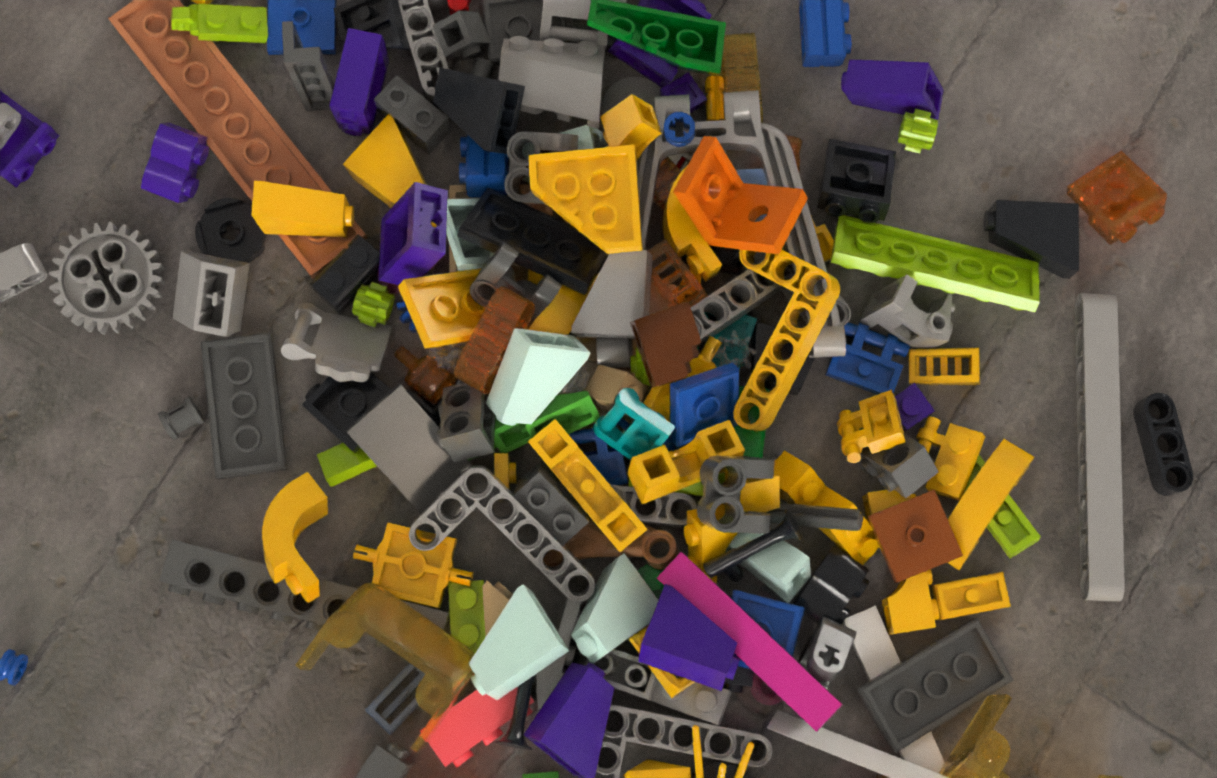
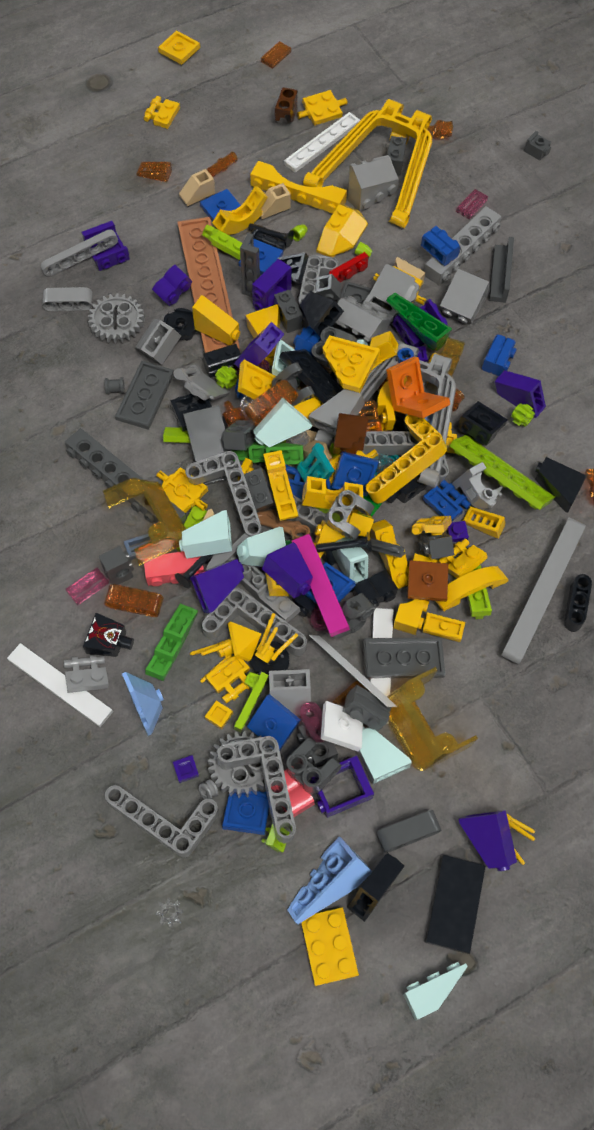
camera: 30 degrees right, 15 degrees down
(287, 516) = (134, 443): yellow arch -> none

